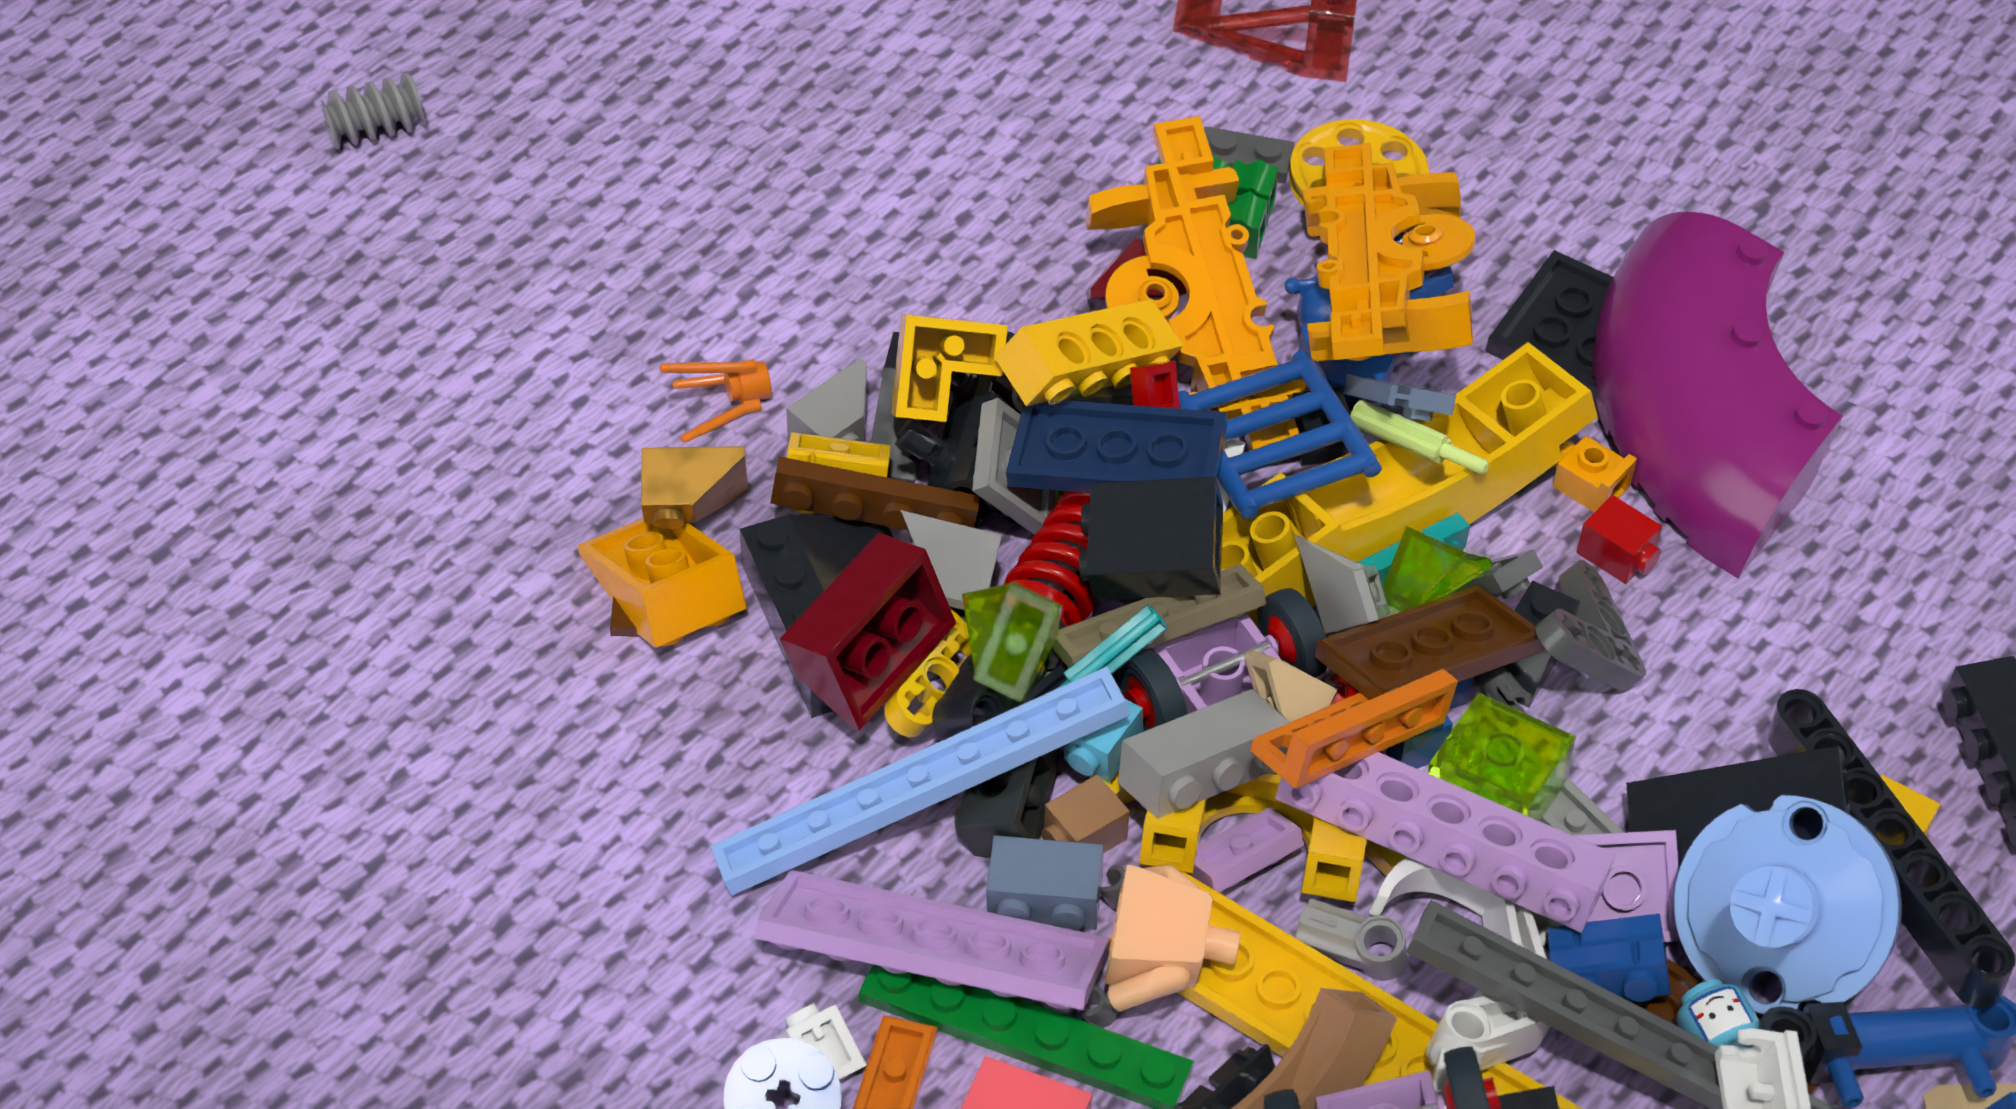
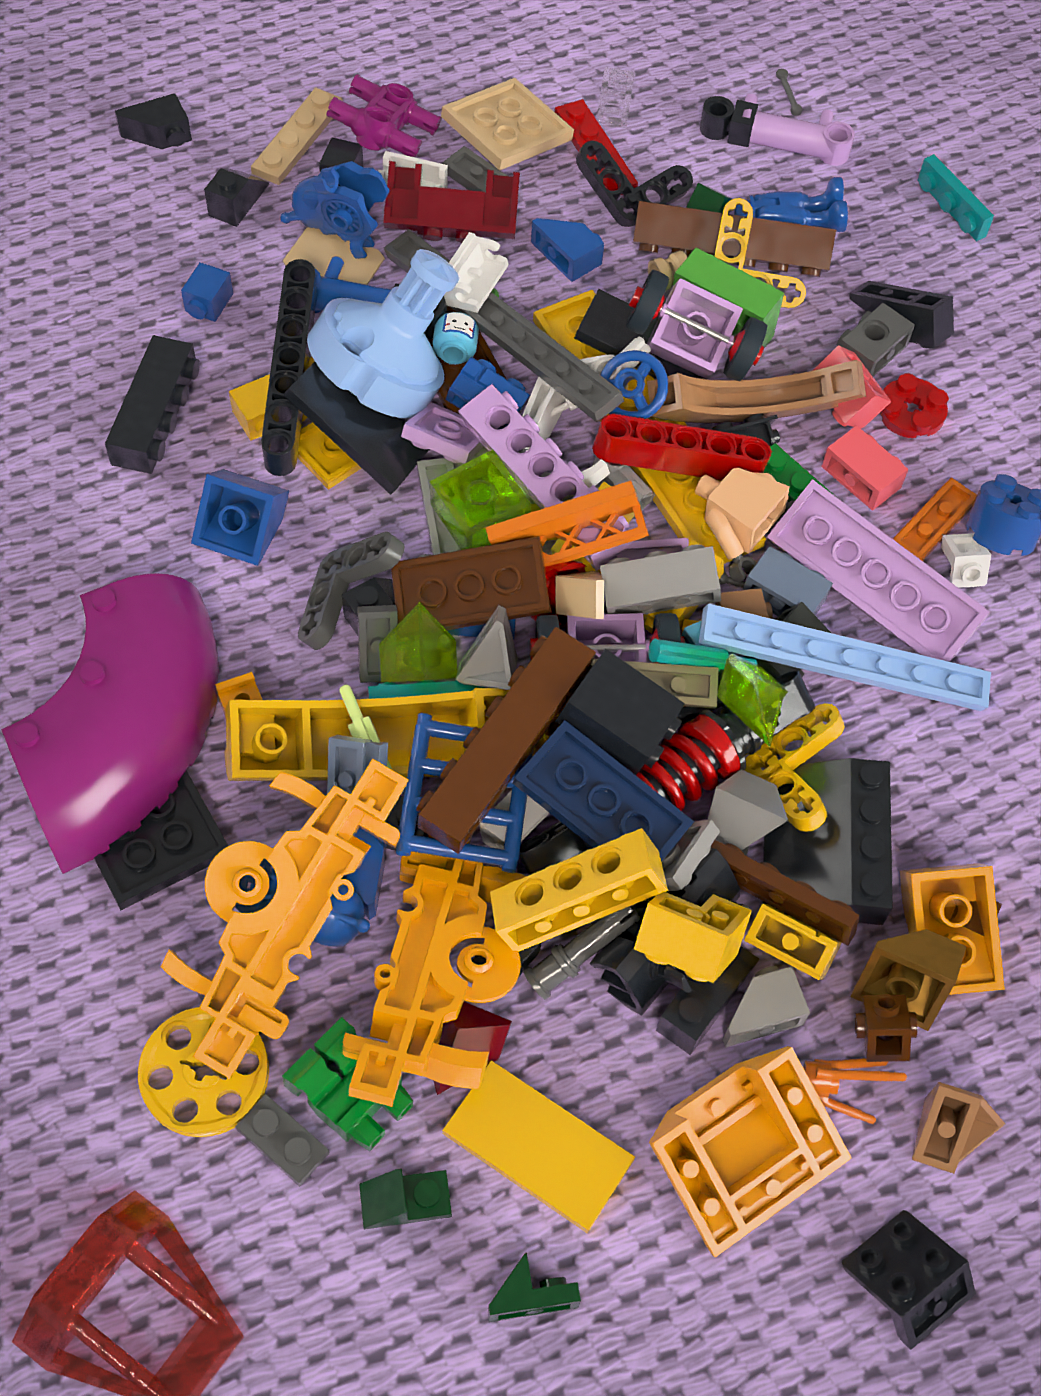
camera: 155 degrees left, 10 degrees up
(590, 401) = (953, 1126): none -> medium nougat slope
(593, 264) = (912, 1276): none -> black bracket
(698, 425) = (886, 1027): none -> reddish brown brick
(805, 292) = (747, 1146): none -> light orange slope
(870, 629) = (848, 757): dark red slope -> none
(939, 119) = (519, 1299): none -> dark green slope
(1000, 238) = (539, 1146): none -> yellow tile
(1099, 156) = (404, 1199): none -> dark green slope
(1155, 385) = (536, 858): red tile -> none
(1263, 467) = (505, 740): none -> reddish brown brick
(1278, 997) = (677, 447): none -> red beam
(1411, 980) = (624, 376): none -> blue piece
(1620, 540) = (267, 649): red brick -> none
(1766, 671) = (238, 515): none -> blue slope

